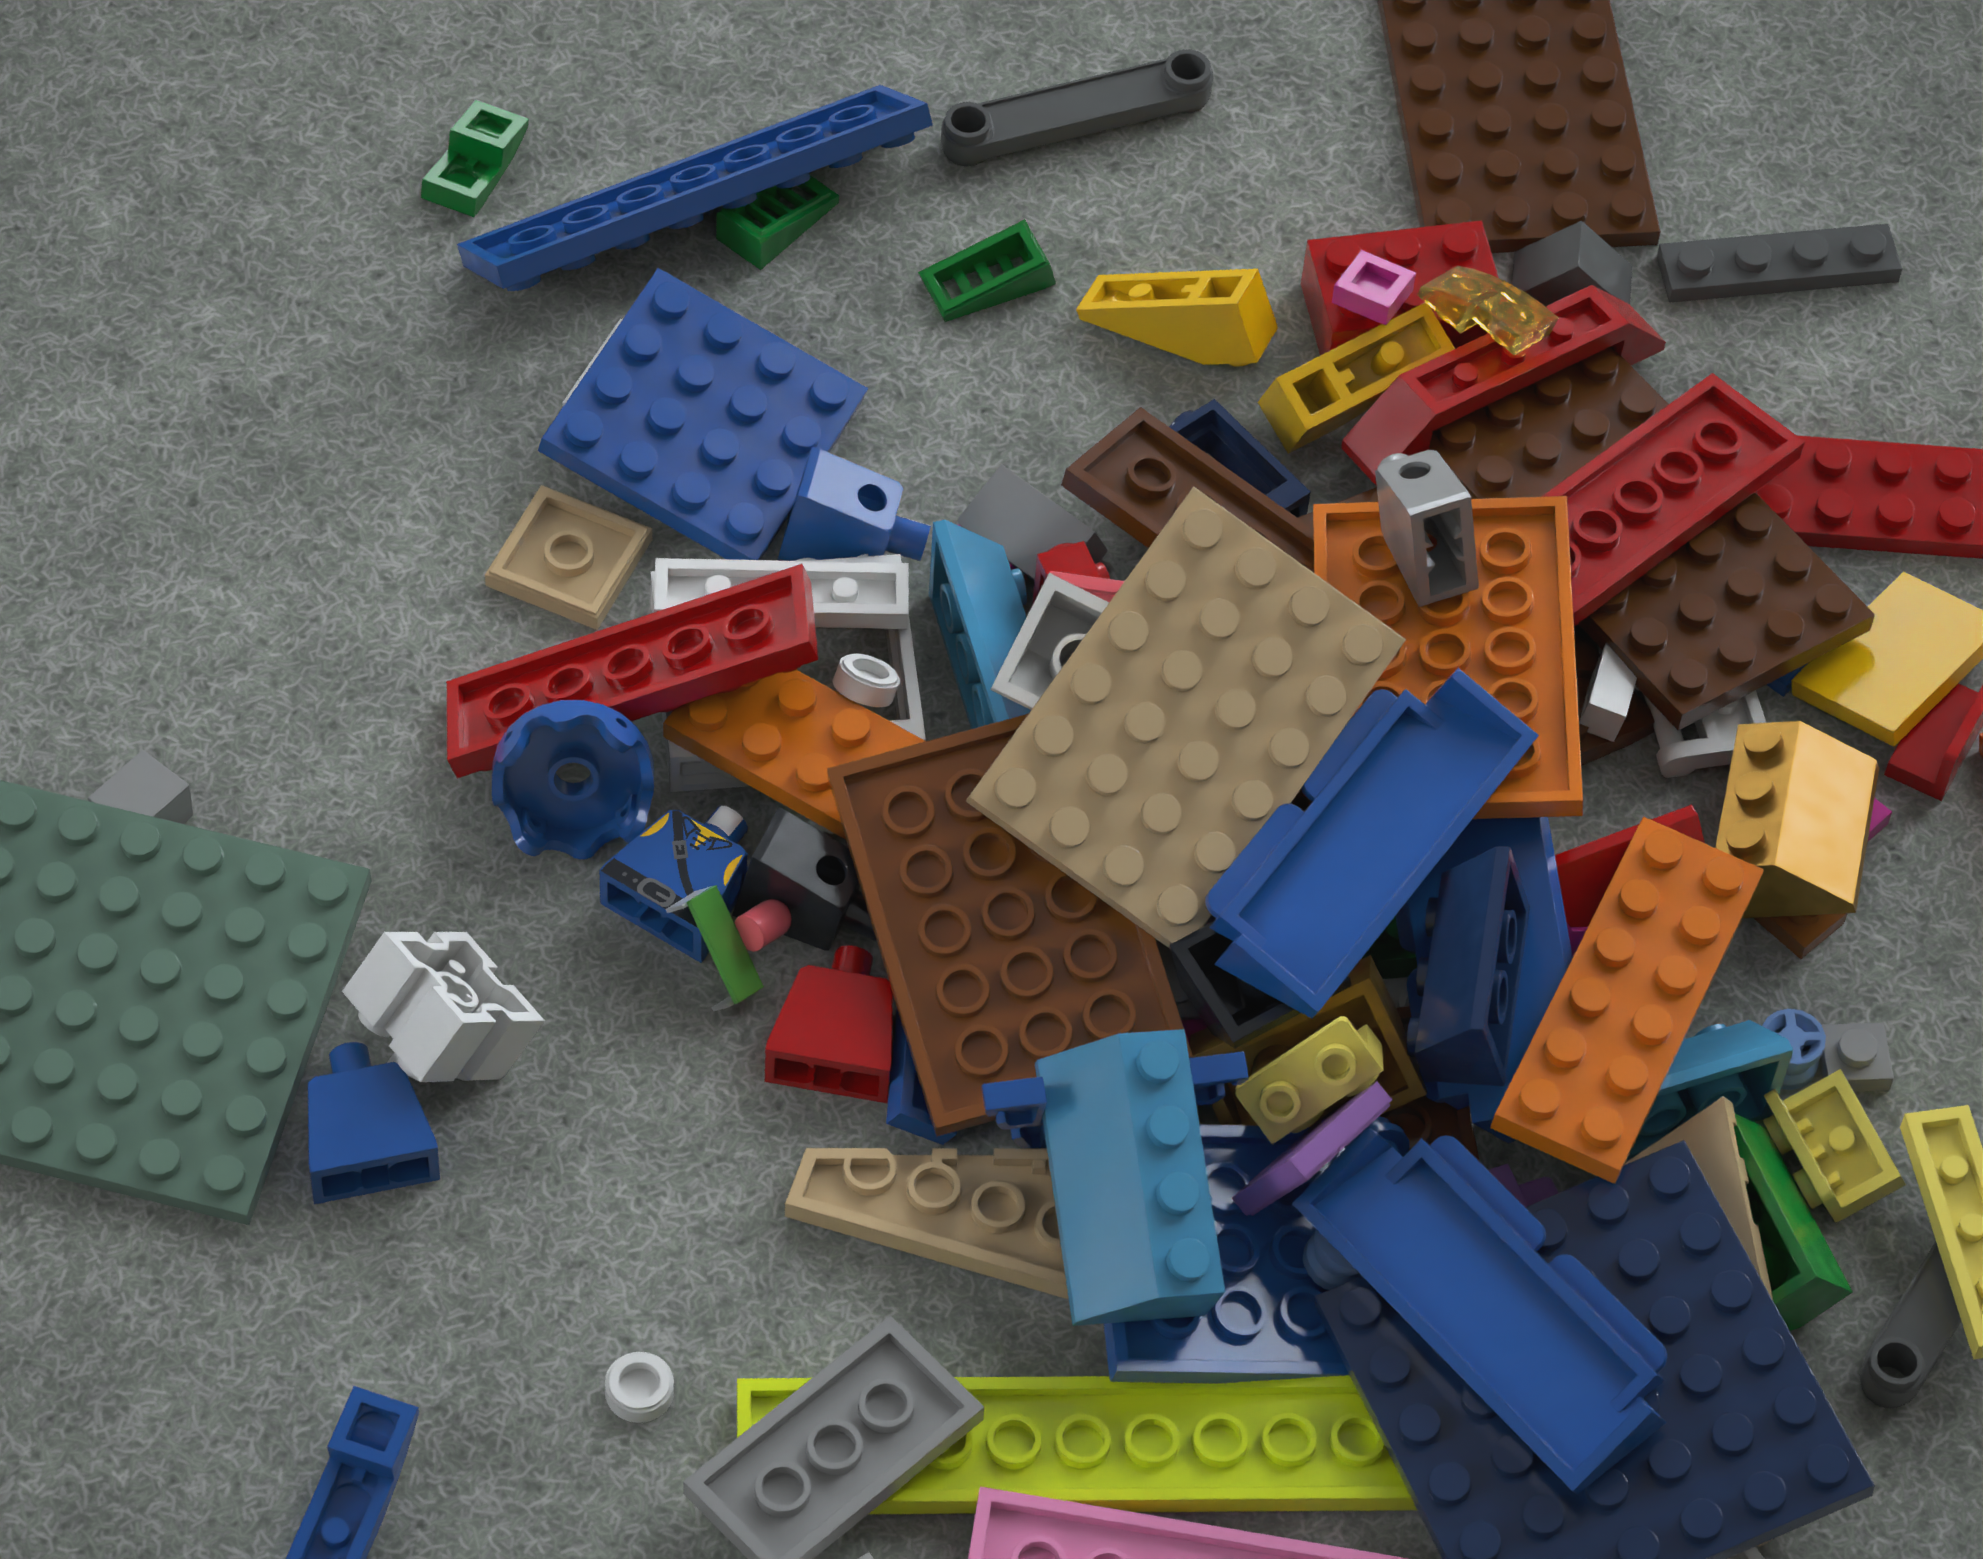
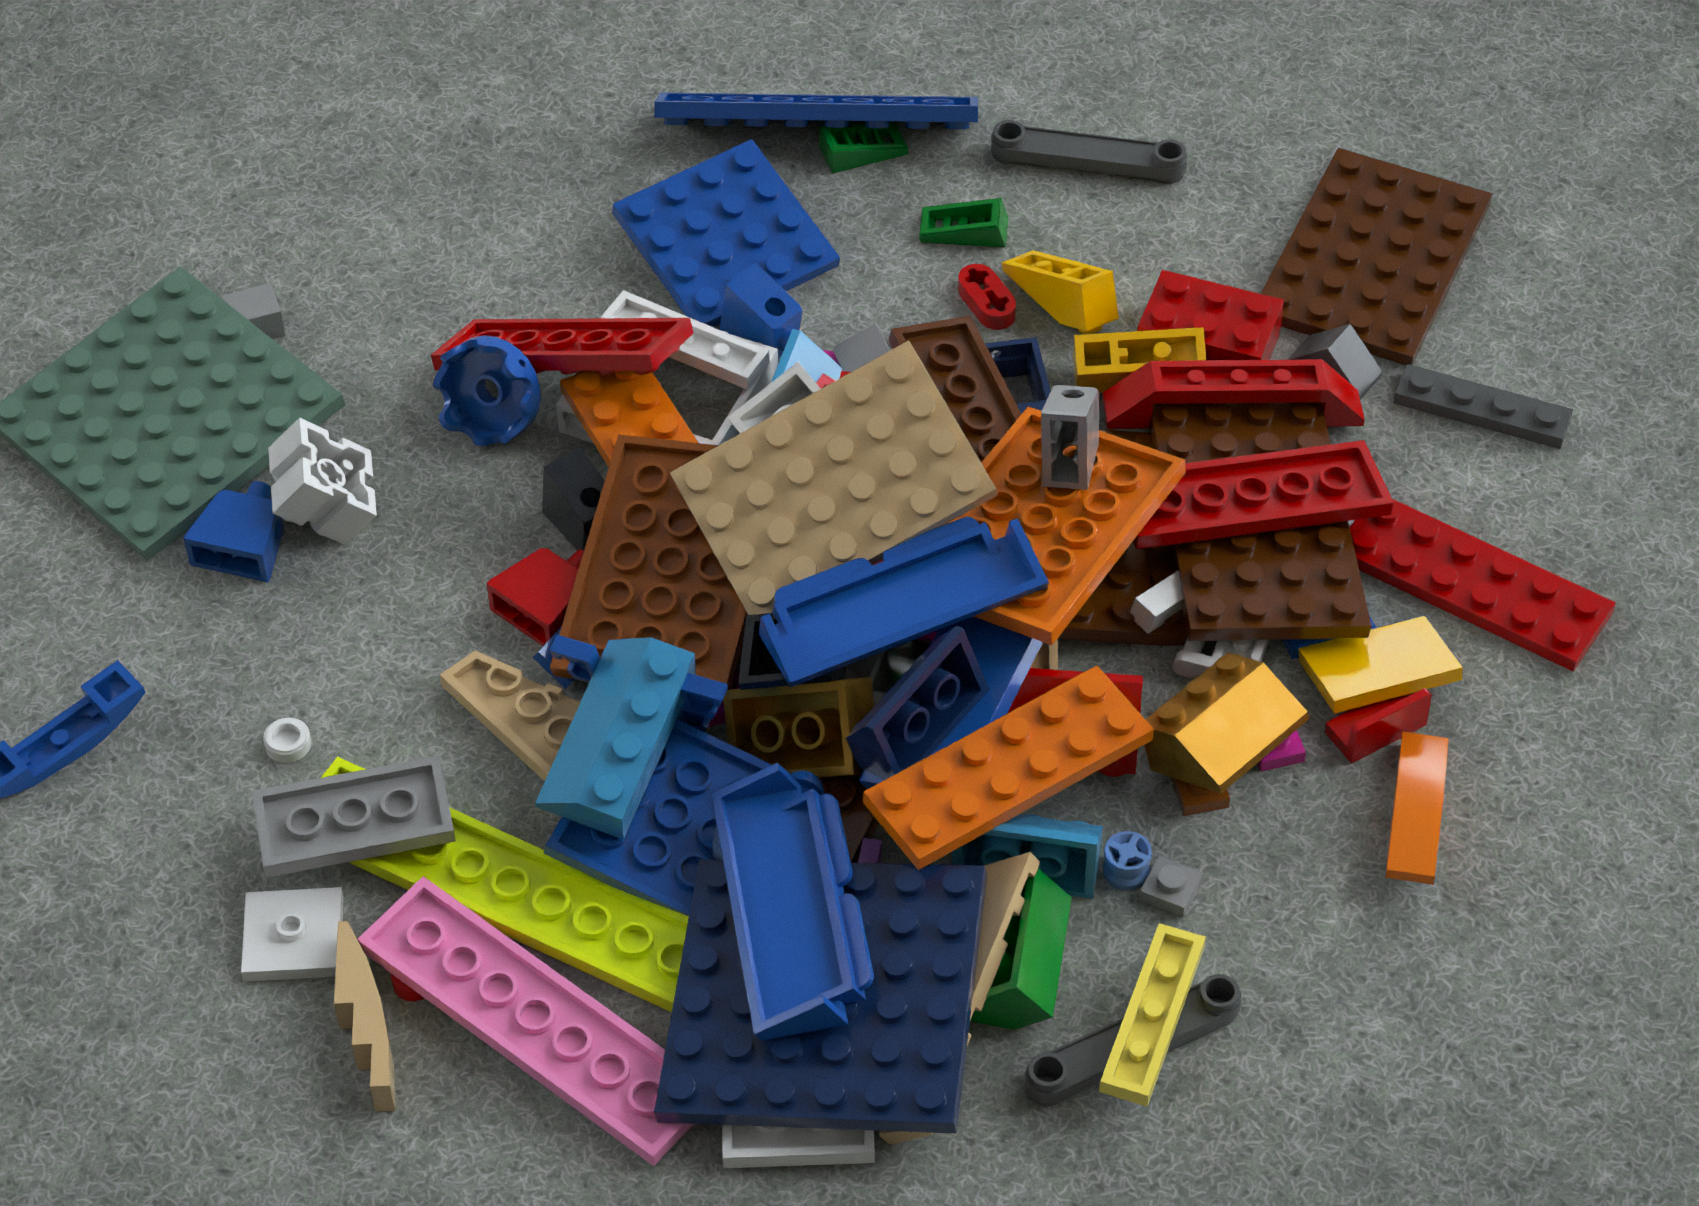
camera: 35 degrees right, 5 degrees down
(476, 158) = (715, 49): green slope -> none
(568, 557) = (594, 279): tan tile -> none
(671, 863) = (512, 475): blue torso -> none
(731, 940) = (513, 517): bright green piece -> none
(866, 680) = (697, 405): white tile -> none
(1089, 365) = (979, 300): none -> red beam
(1311, 1077) = (773, 722): light yellow bracket -> none
(1312, 1150) = (731, 766): medium lavender tile -> none
(1373, 287) = (1172, 305): dark pink plate -> none
(1474, 297) = (1237, 342): clear yellow slope -> none
(1835, 1144) = (1108, 928): light yellow bracket -> none

